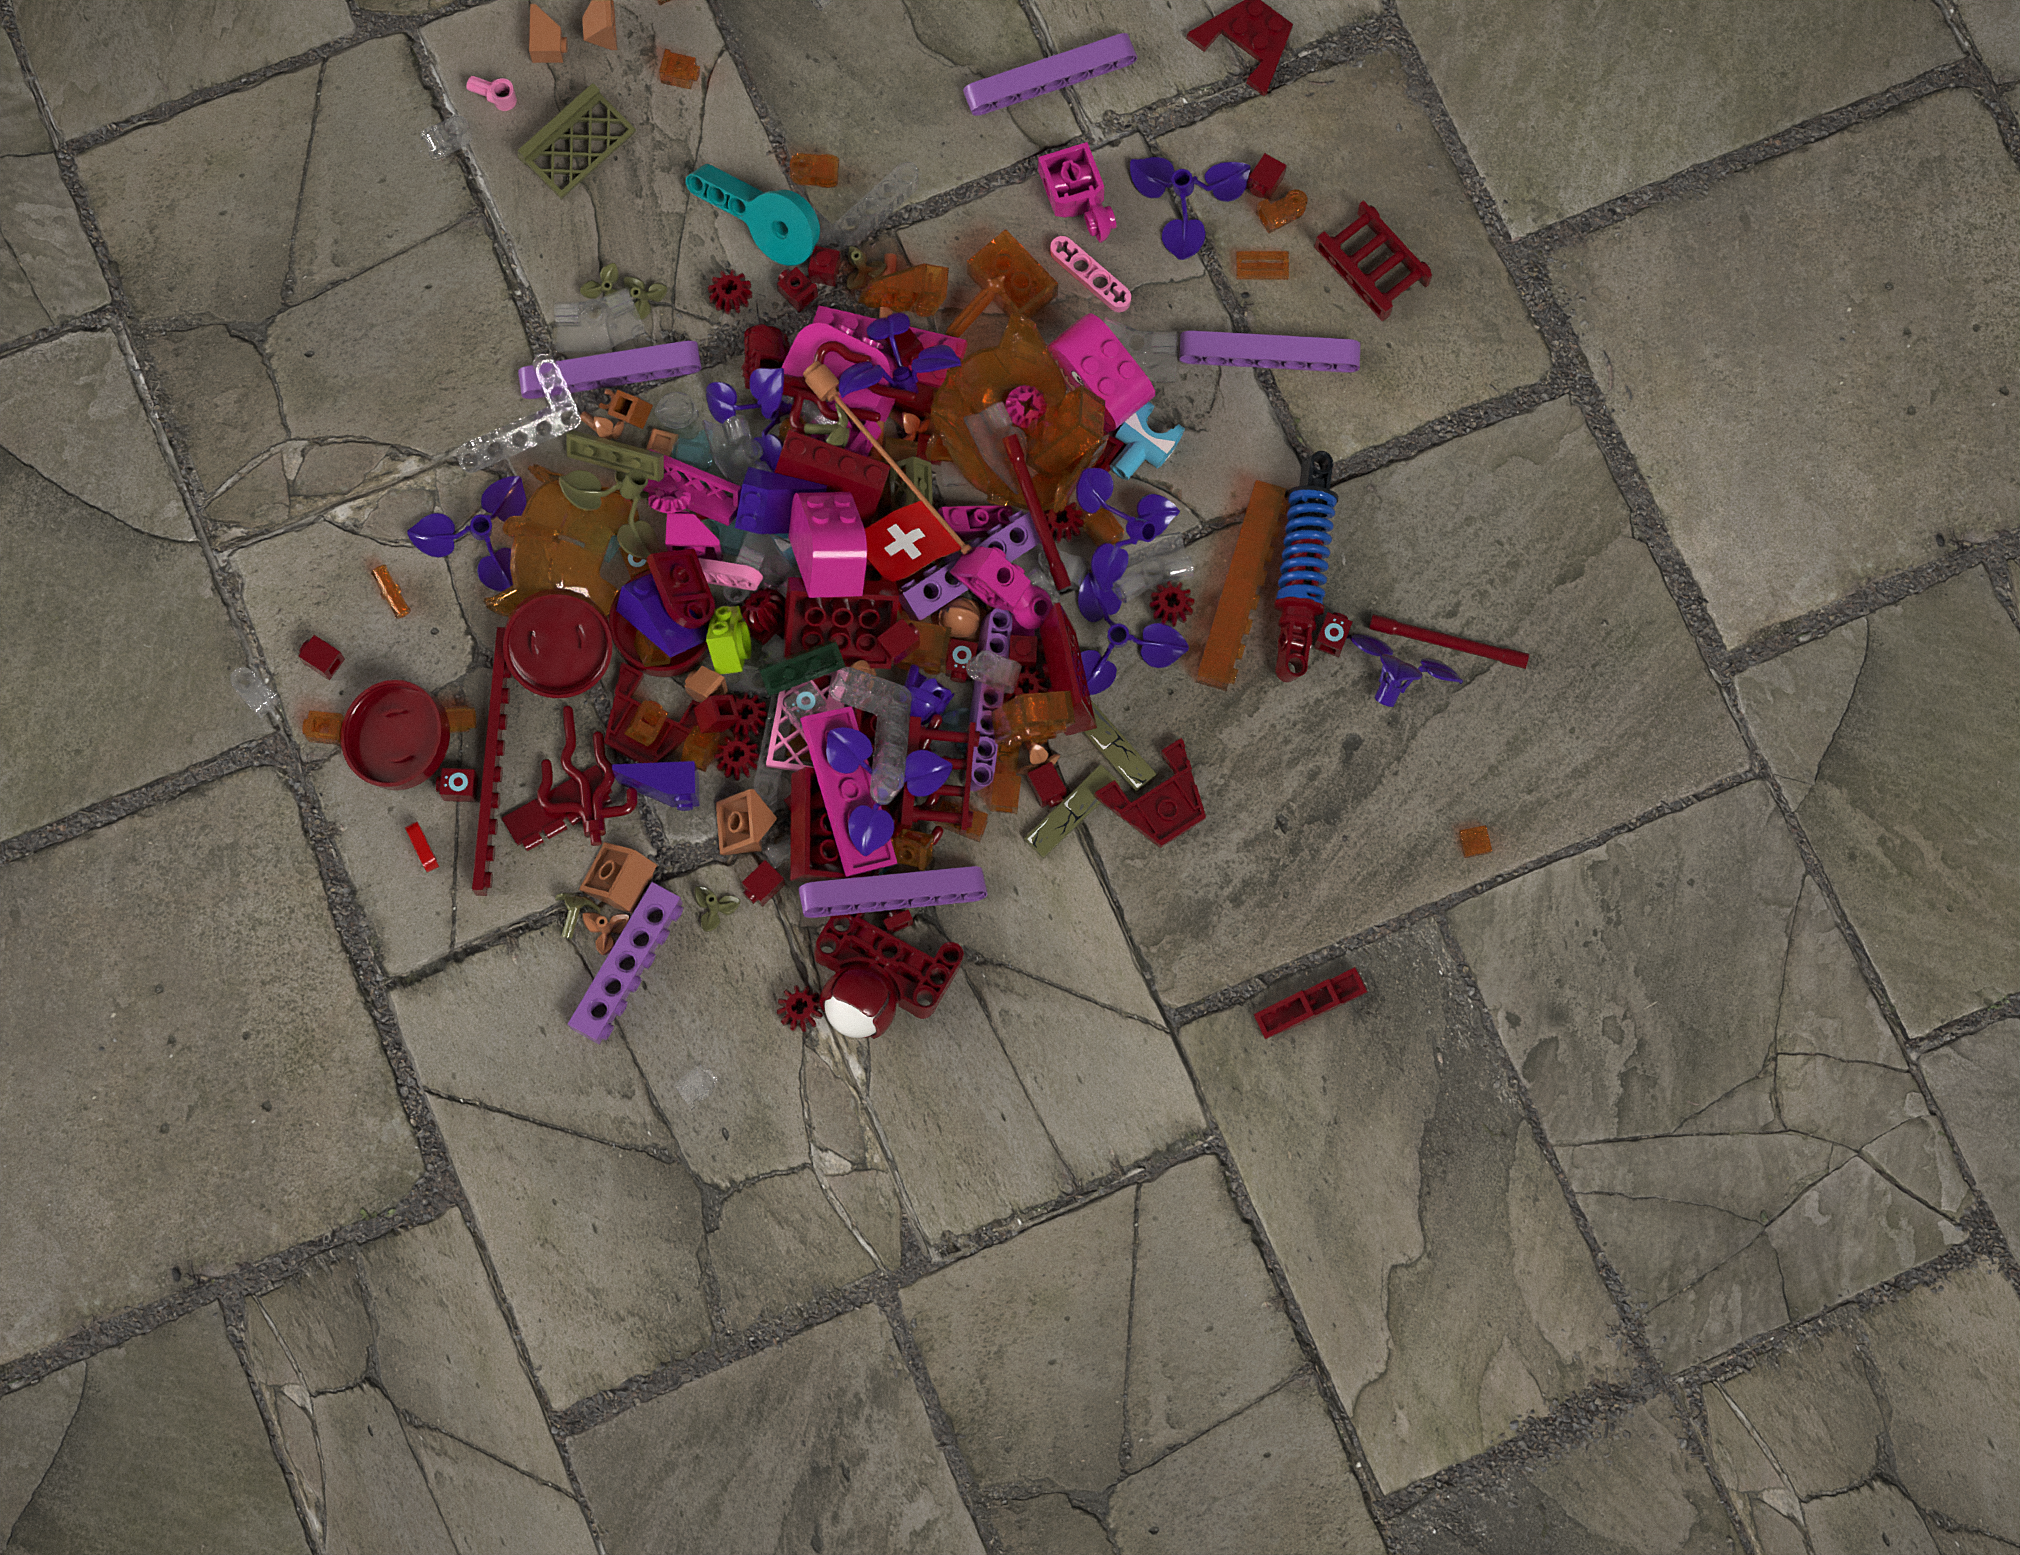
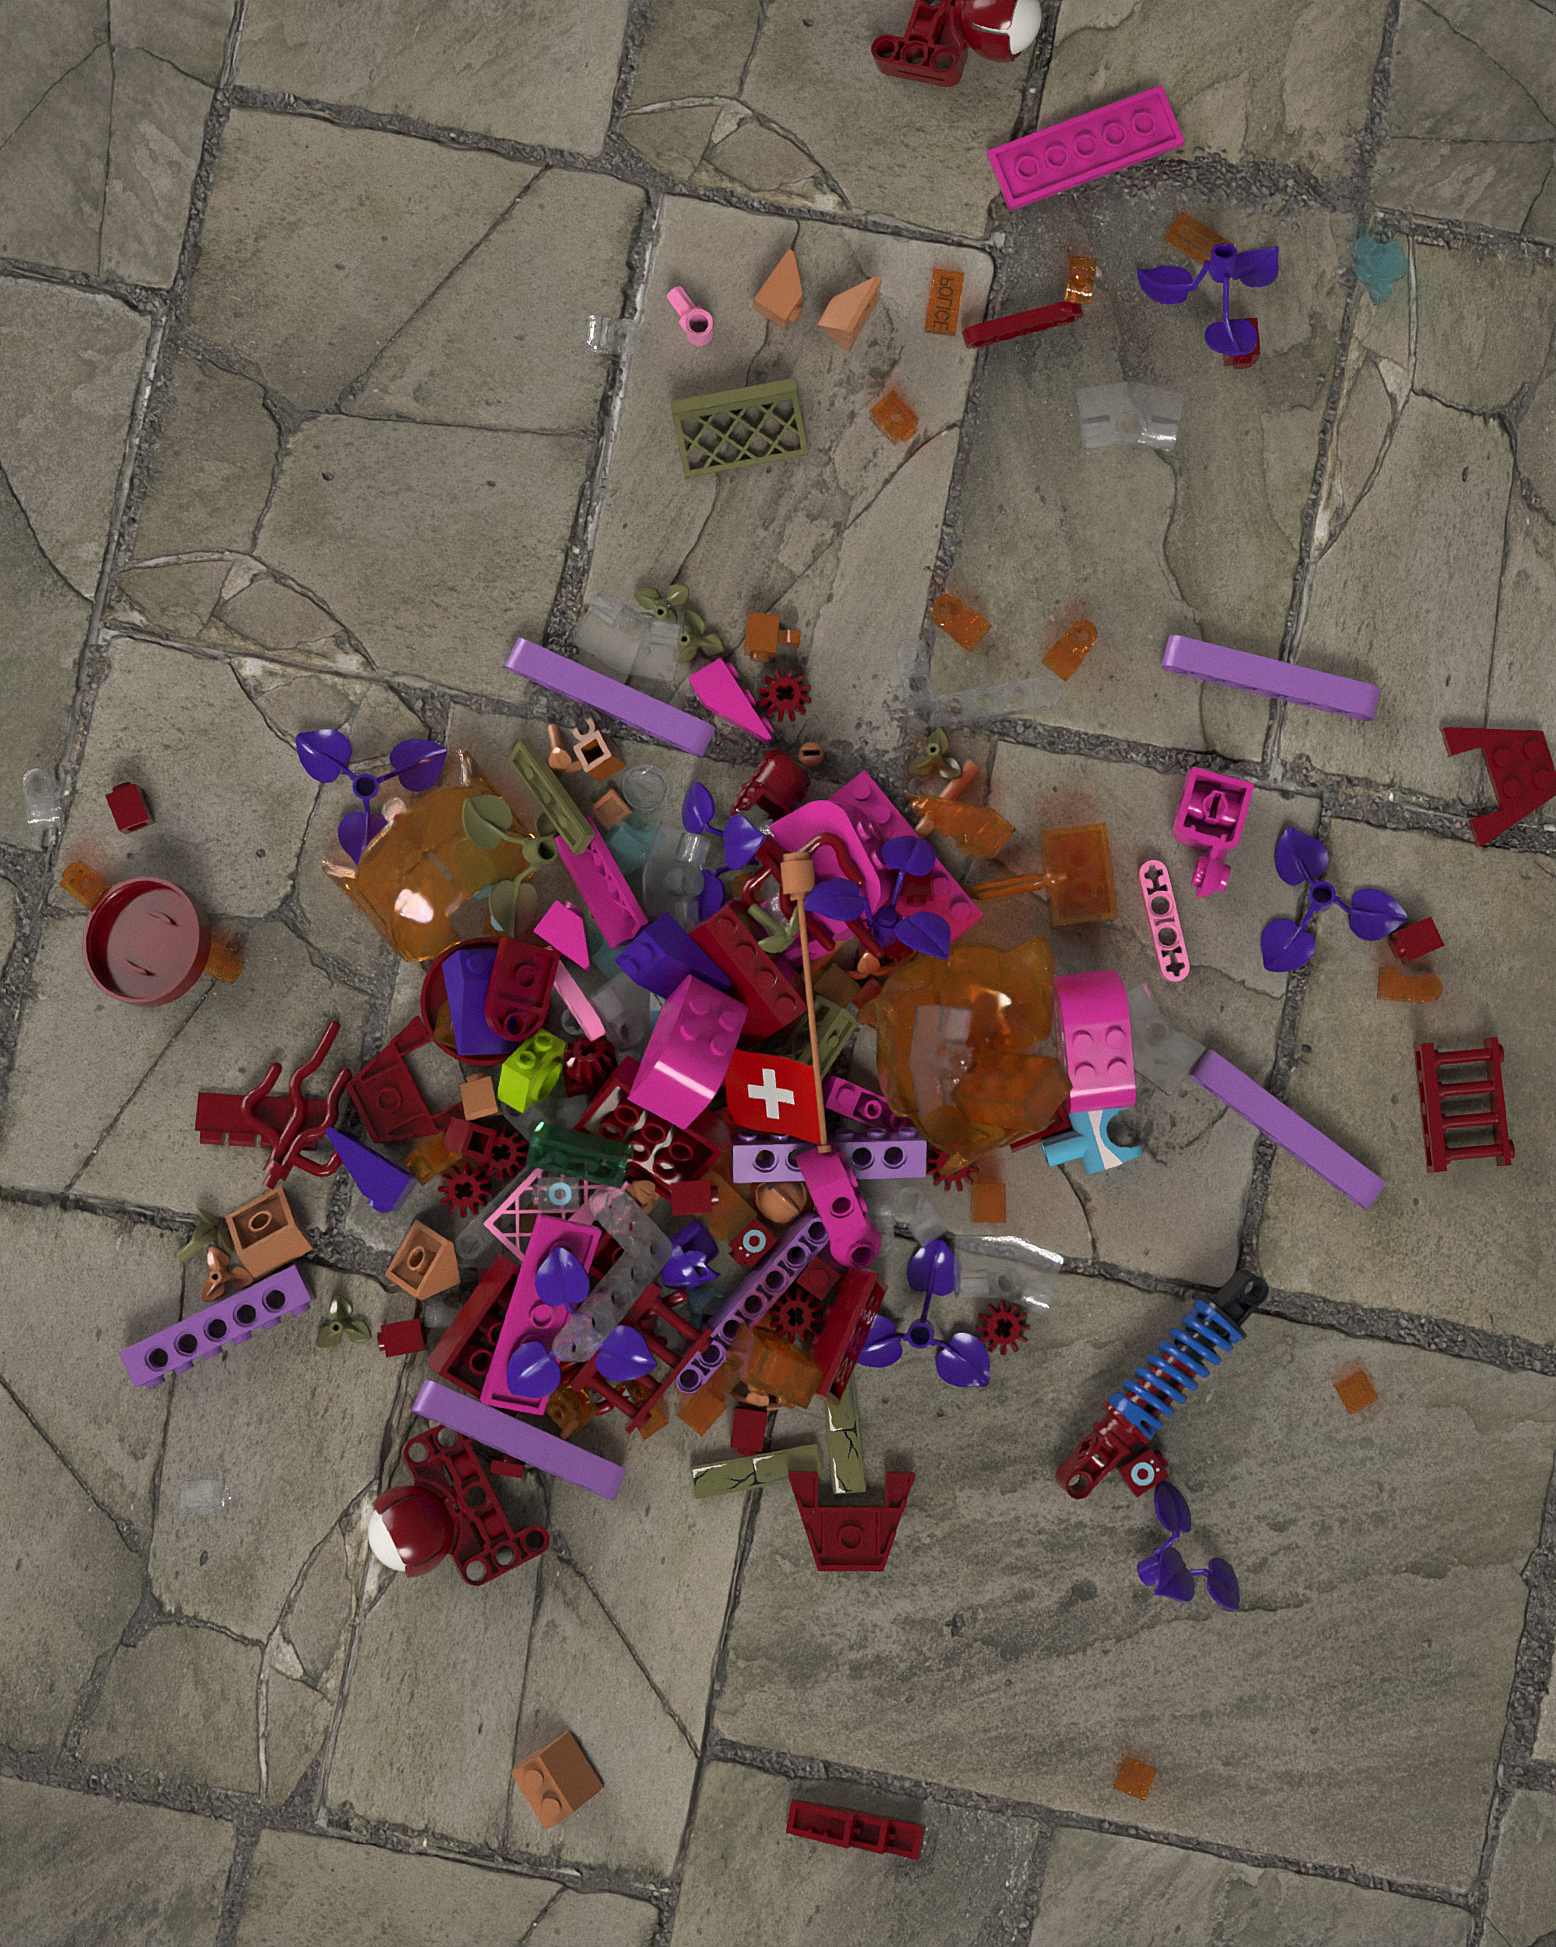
camera: 35 degrees right, 10 degrees up
(390, 591) = (242, 785): clear orange pin -> none
(422, 847) = (101, 1071): red beam -> none
(457, 785) = (176, 1031): dark red brick -> none
(492, 771) = (218, 1040): dark red plate -> none
(527, 424) = (485, 702): clear beam -> none
(557, 643) = (362, 958): dark red piece -> none
(642, 732) = (395, 1110): clear orange brick -> none
(669, 499) = (563, 892): dark pink gear -> none
(689, 262) = (764, 636): none -> dark orange brick
(690, 320) = (723, 697): none -> dark pink slope
(778, 220) = (879, 655): teal beam -> none
(778, 322) = (811, 761): none -> nougat hinge
(791, 1004) = (348, 1477): dark red gear -> none
(800, 295) = (851, 747): dark red brick -> none
(824, 266) = (898, 732): dark red brick -> none
(903, 142) = (1068, 653): none -> clear orange piece
(994, 671) = (774, 1287): clear piece -> none
(1016, 410) = (1000, 1012): dark pink gear -> none
(1016, 458) = (943, 1083): dark red piece -> none
(1081, 1110) = (557, 1780): none -> nougat slope
(1153, 517) = (1047, 1222): dark purple plant -> none
(1241, 586) = (1086, 1356): clear orange brick -> none
(1262, 275) = (1322, 1015): clear orange tile -> none
(1438, 491) = (1355, 1392): none -> clear orange tile
(1504, 655) = (1300, 1610): dark red piece -> none

